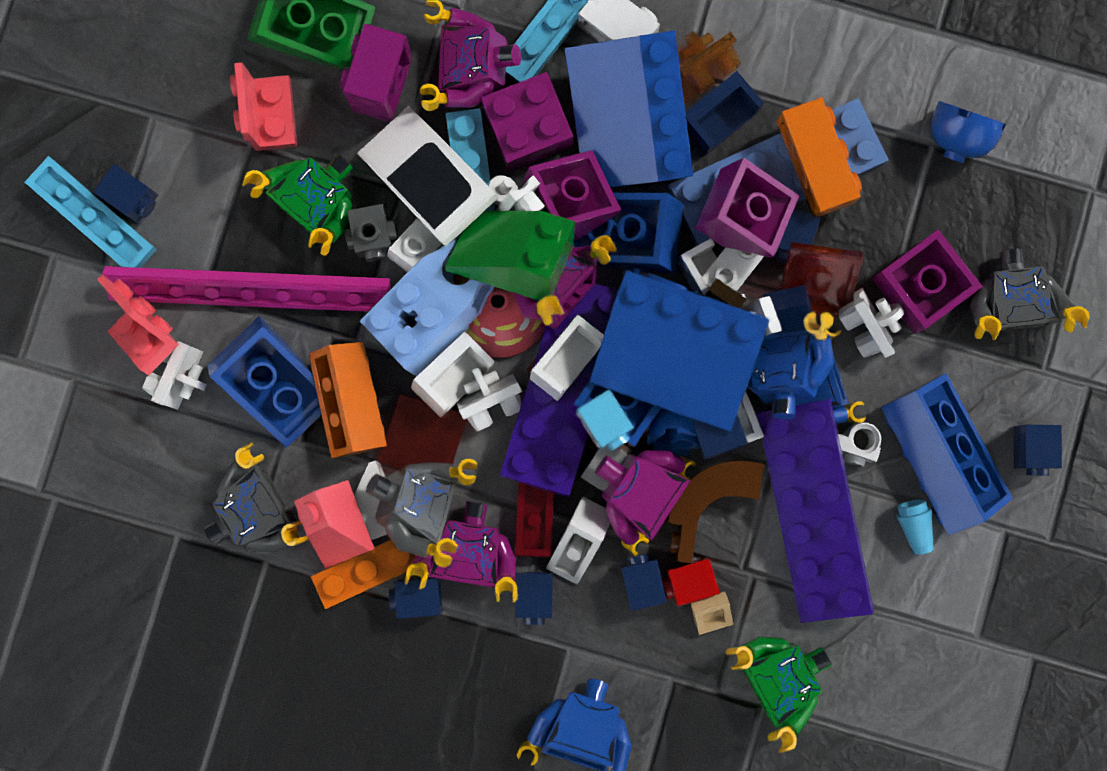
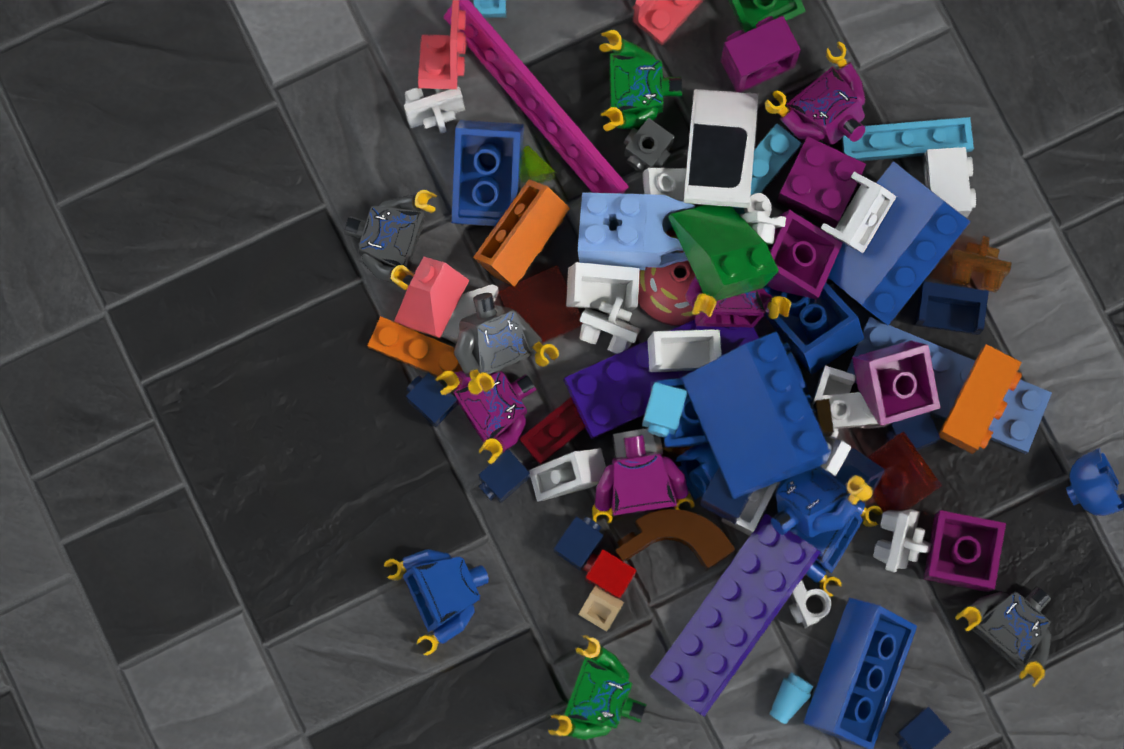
camera: 50 degrees right, 5 degrees down
(304, 338) = (536, 167): none -> clear neon green slope
(585, 112) = (863, 214): none -> white panel

